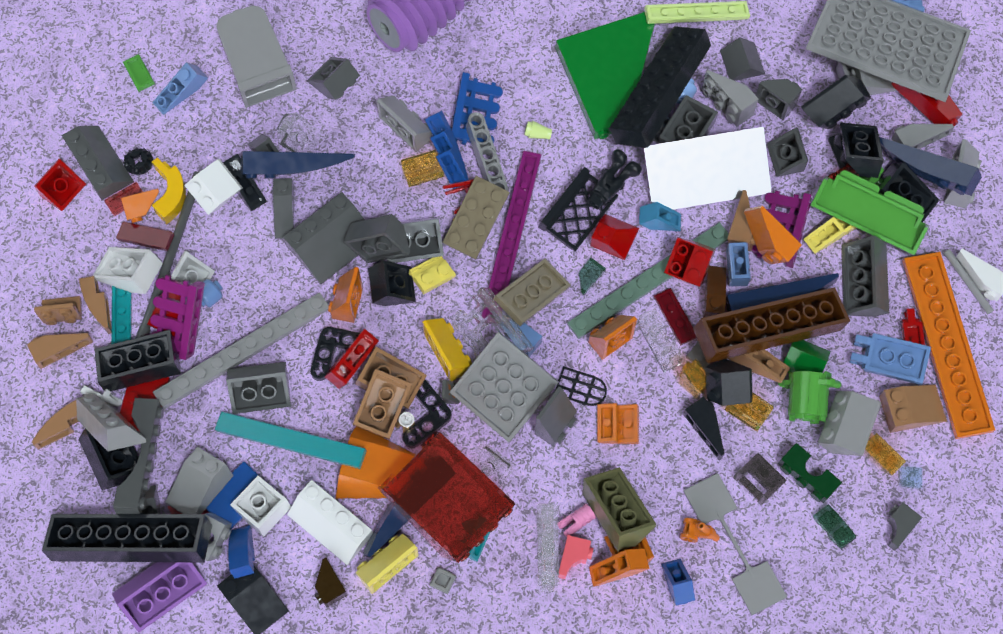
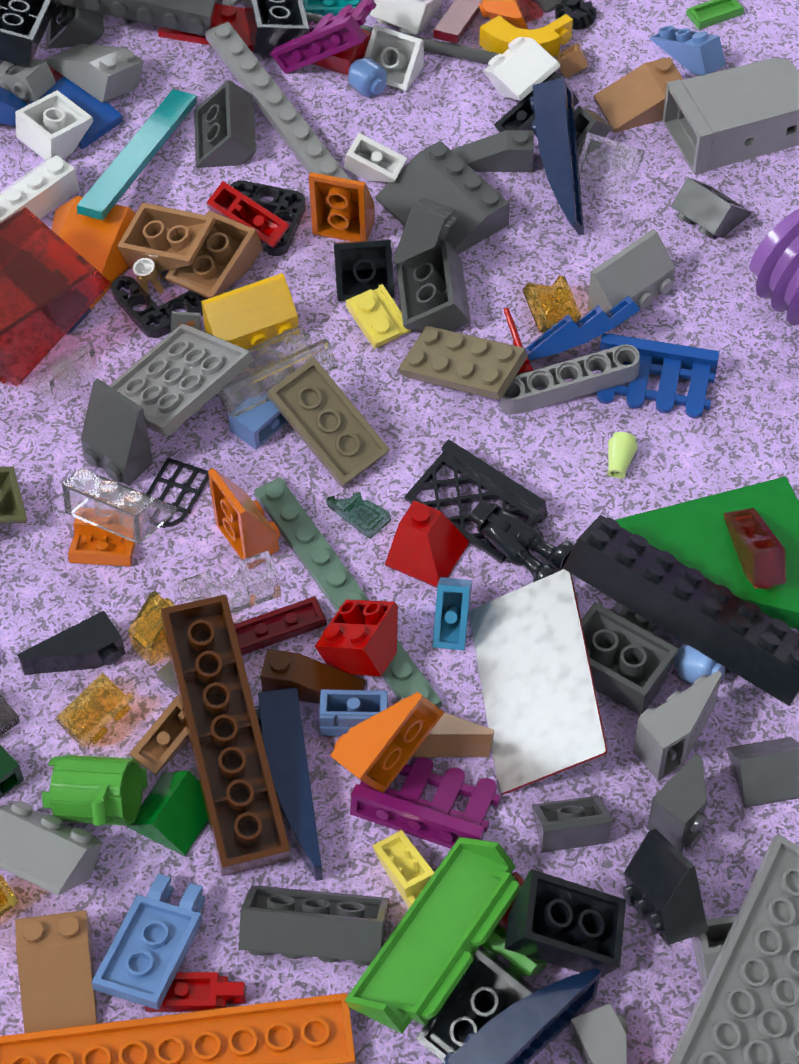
camera: 95 degrees right, 15 degrees down
(188, 162) = (572, 60): none -> medium nougat slope
(229, 116) = (637, 96): none -> medium nougat slope
(296, 282) = (373, 160): none -> white slope
(514, 224) = (461, 419): magenta plate -> none
(602, 413) = (114, 506): none -> clear slope
(614, 53) = (757, 548): none -> clear red slope
(728, 383) = (133, 663): black slope -> none

